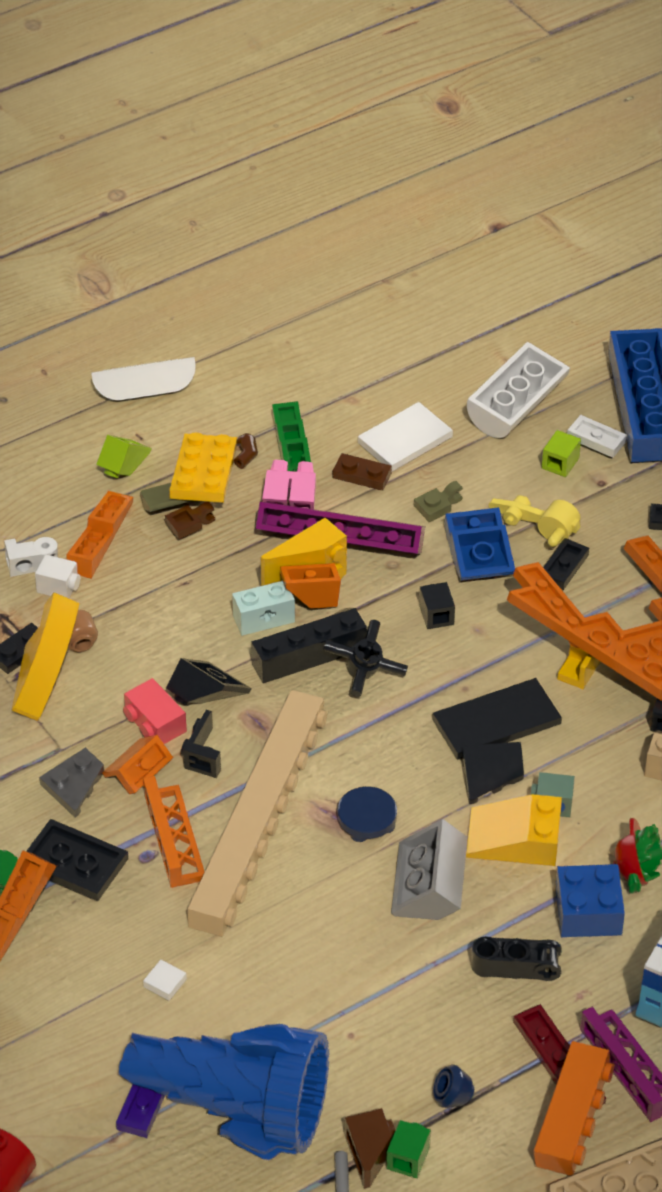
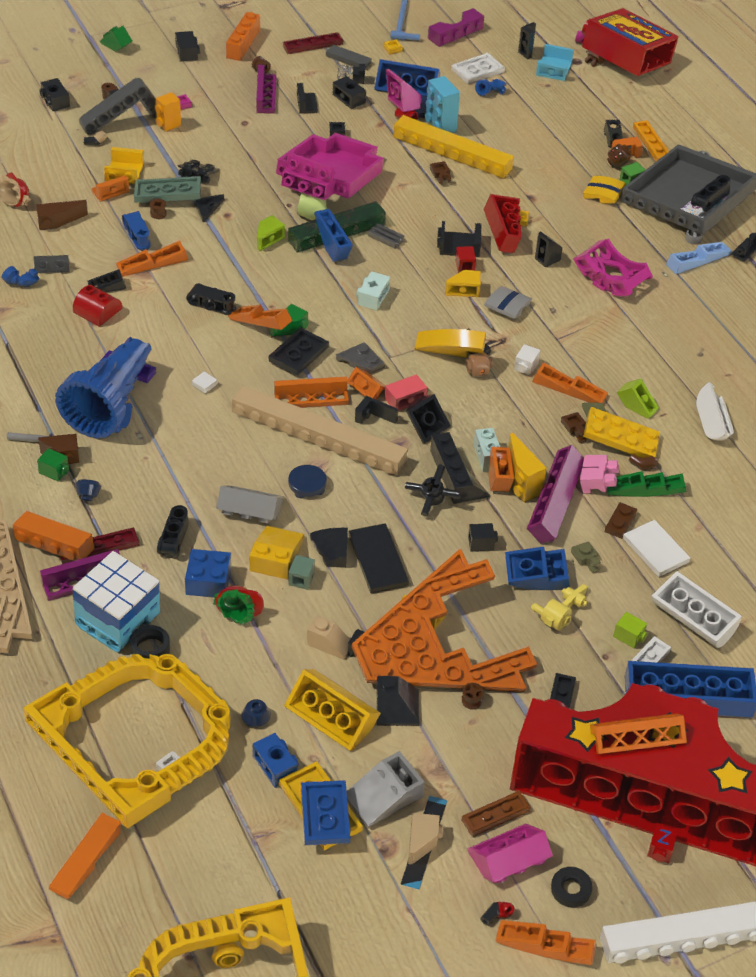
camera: 95 degrees right, 0 degrees up
(27, 556) = (547, 348): white leg -> none
(566, 562) = (516, 614): black plate -> none

